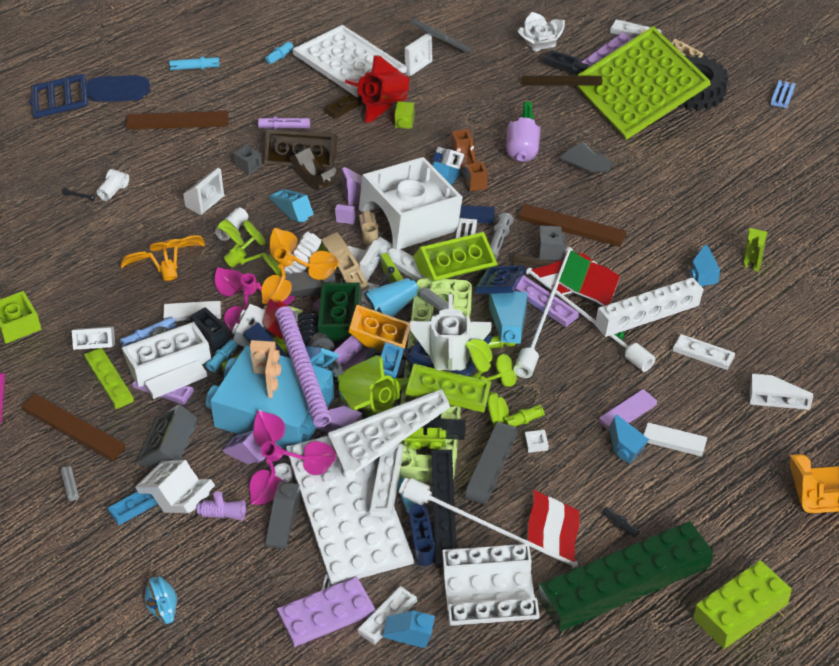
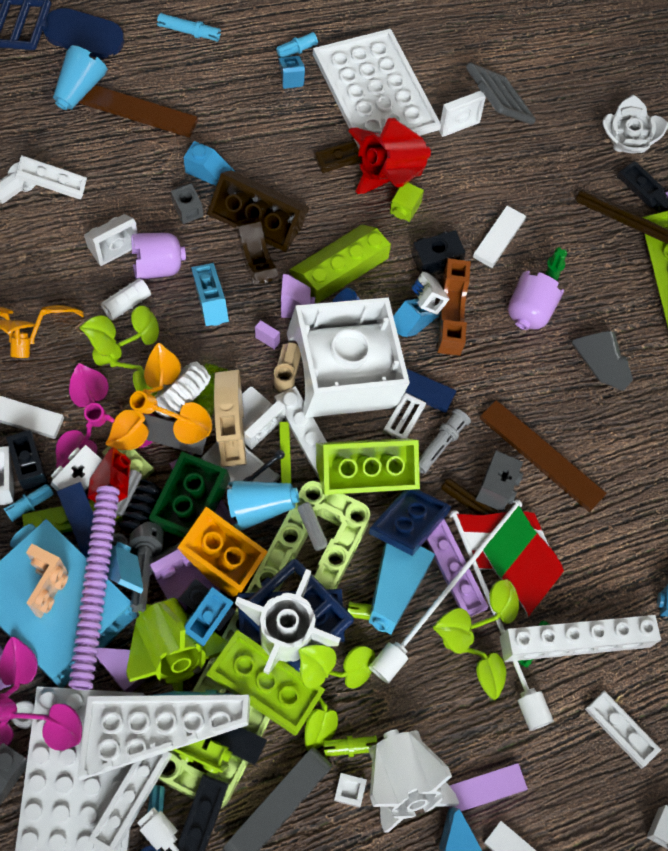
camera: 15 degrees right, 20 degrees up
(131, 106) = (77, 77): none -> medium azure cone
(140, 171) = (50, 177): none -> white tile
(241, 190) = (156, 255): none -> lavender cylinder
(249, 133) = (205, 163): none -> dark azure slope
(284, 123) = (245, 154): lavender pin -> none
(286, 67) = (292, 71): none -> dark azure slope
(382, 154) = (342, 261): none -> lime slope
(439, 135) = (430, 261): none -> black brick
(479, 117) = (499, 236): none -> white tile
(570, 331) = (457, 635): none -> lime plant
(573, 410) = (407, 778): none -> white brick

